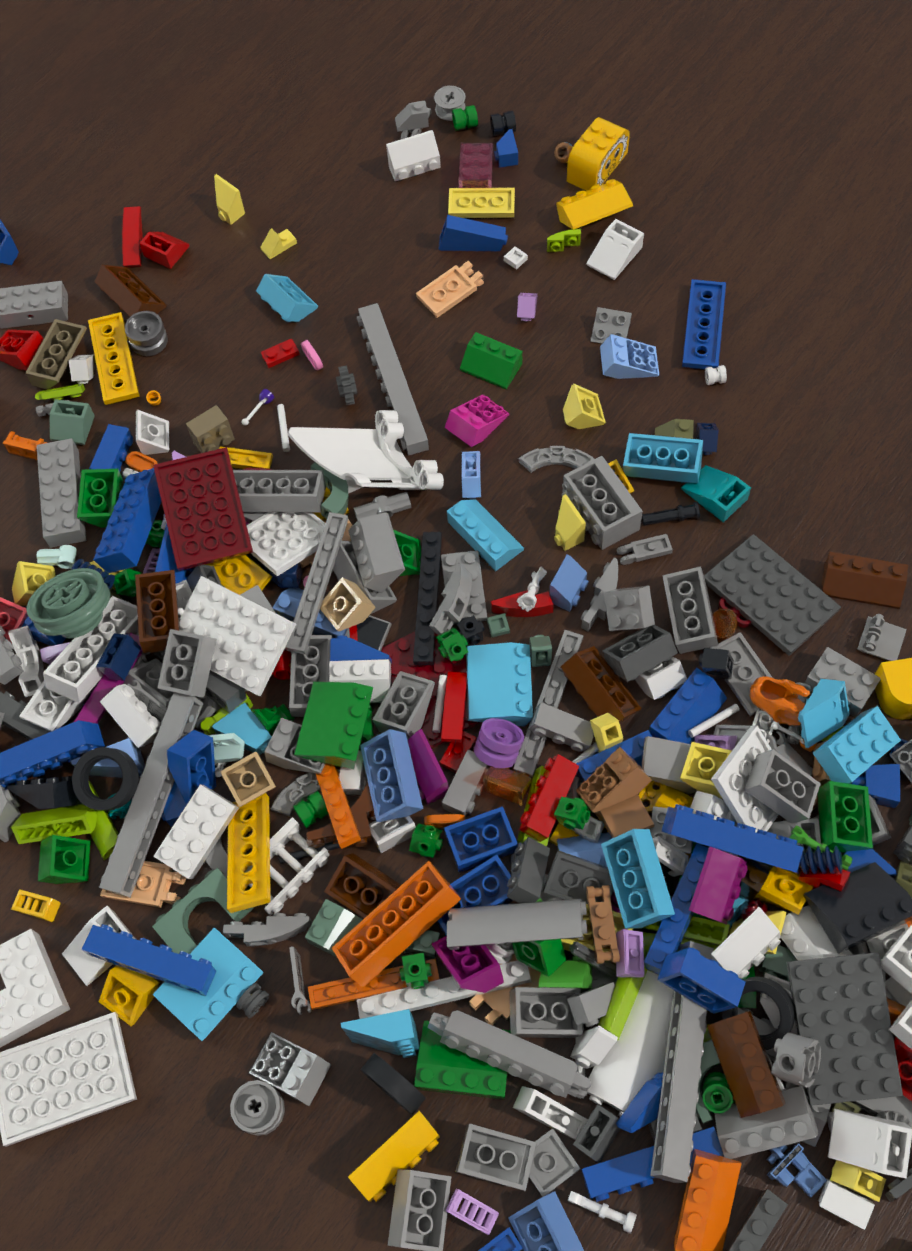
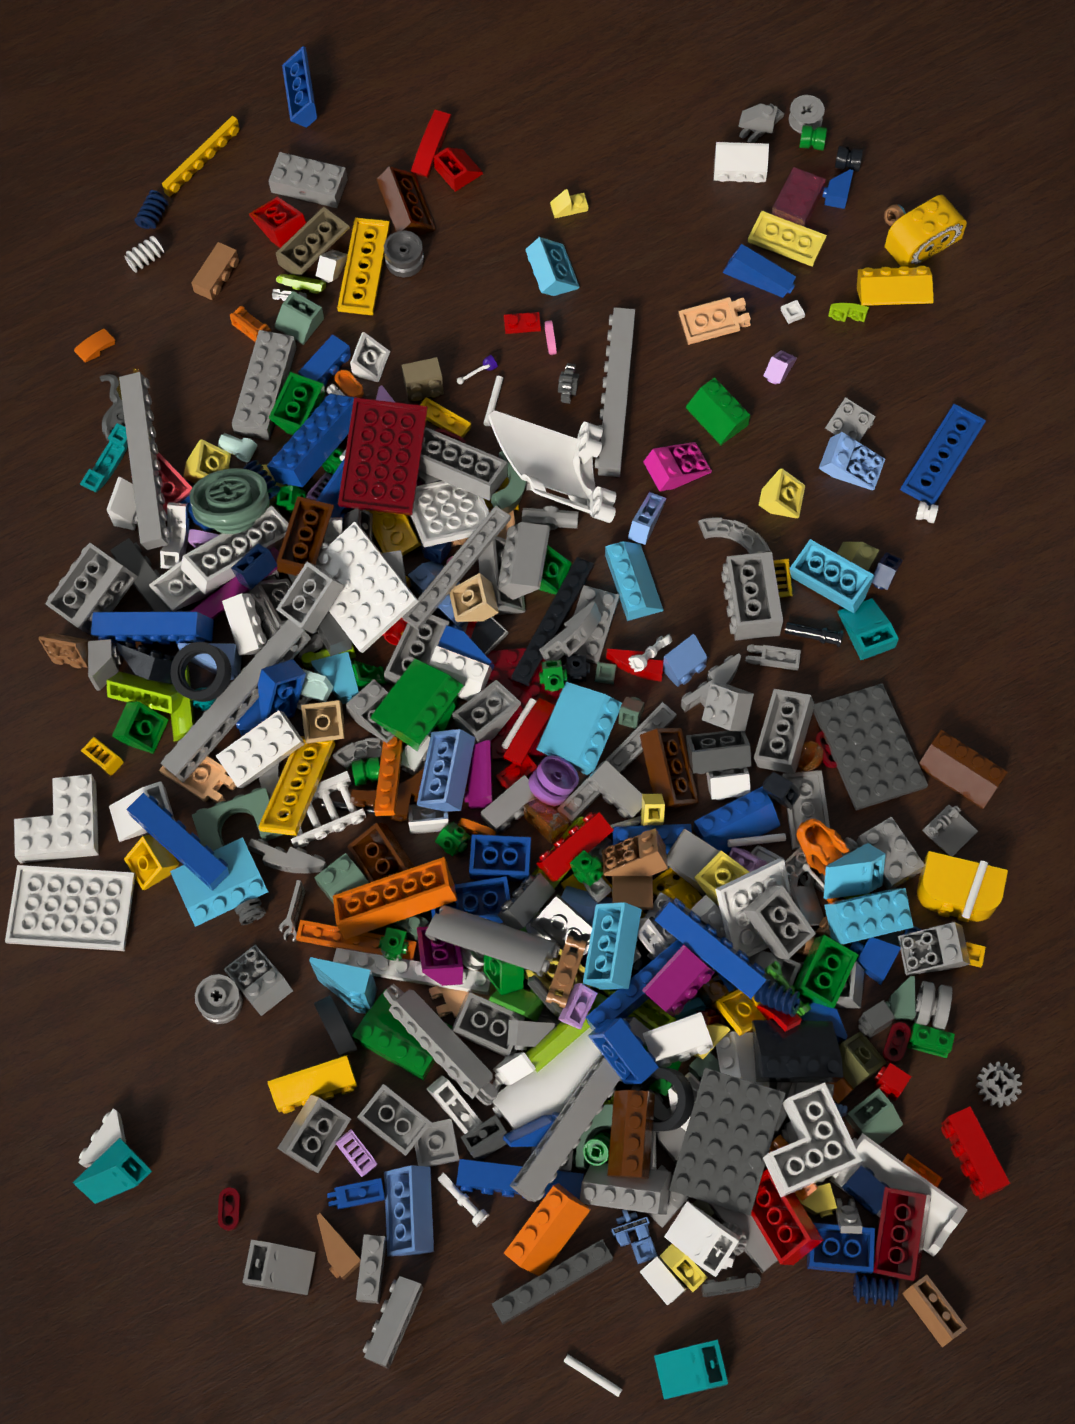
camera: 20 degrees right, 5 degrees up
(153, 395) = (386, 320): light orange hinge -> none
(228, 201) = (537, 142): light yellow slope -> none
(569, 526) = (711, 607): light yellow slope -> none
(616, 249) = (894, 342): white slope -> none
(796, 1059) = (670, 1146): light grey brick -> none

